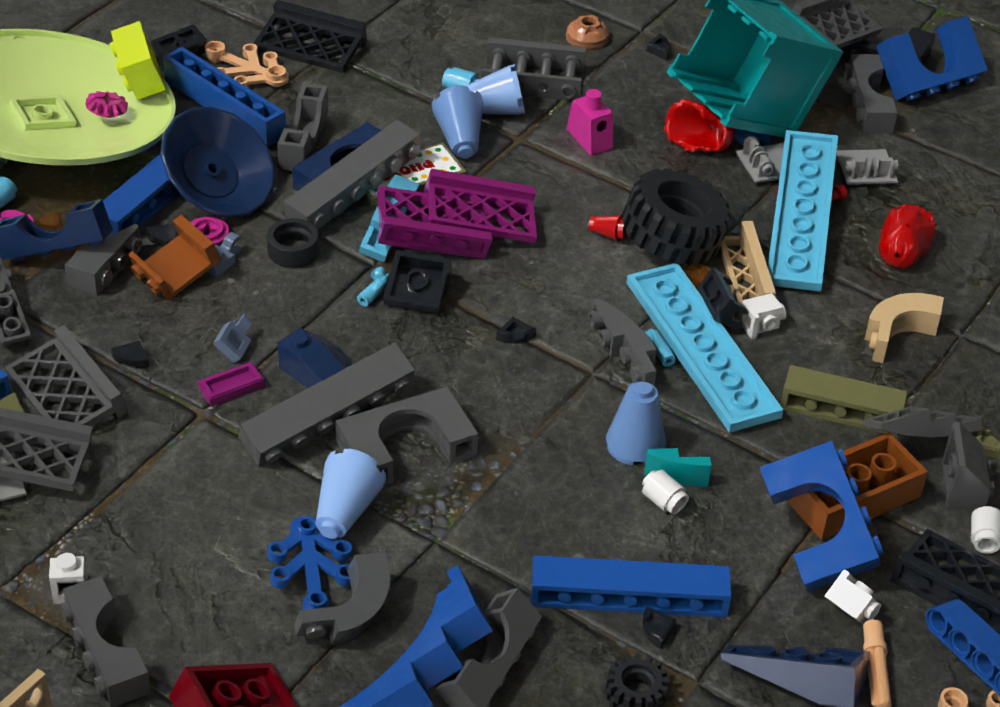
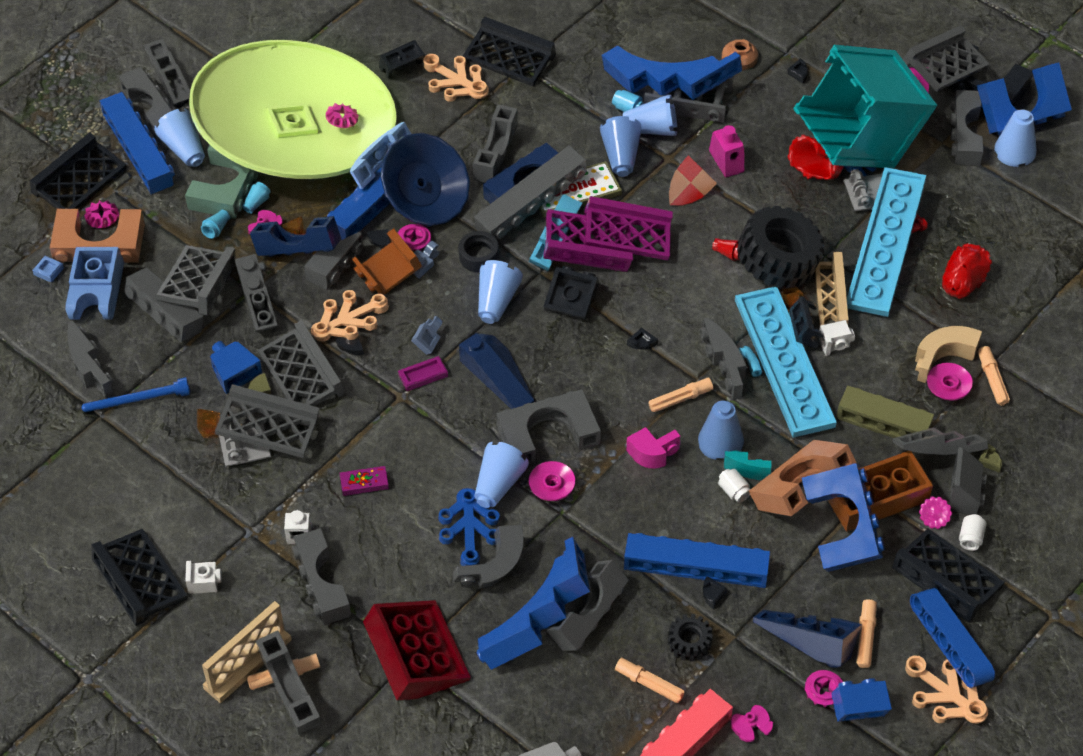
camera: 10 degrees right, 10 degrees up
(96, 337) = (326, 328): none -> light nougat plant
(136, 61) = (367, 79): neon yellow brick -> none
(148, 143) = (372, 157): none -> light blue slope
(159, 516) = (364, 480): none -> magenta tile
(218, 90) = (435, 111): blue brick -> none
(320, 406) = (492, 398): dark grey brick -> none
(321, 278) = (496, 289): none -> light blue cone
(375, 288) = (542, 290): medium azure arm -> none
(419, 500) = (552, 473): none -> dark pink dish
(535, 48) = (691, 76): none -> blue arch
(546, 457) = (652, 452): none -> dark pink brick
(549, 158) = (689, 183): none -> shield
(587, 385) = (692, 391): none -> light nougat axle
(735, 487) = (781, 489): none -> nougat arch
(852, 598) = (858, 581): white brick -> none
(867, 166) = (950, 199): light grey hinge -> none
(915, 357) = (949, 374): none -> dark pink dish
(933, 508) = (935, 512): none -> dark pink piece
(934, 99) = (1017, 140): none -> light blue cone
(961, 341) = (993, 375): none -> light nougat axle

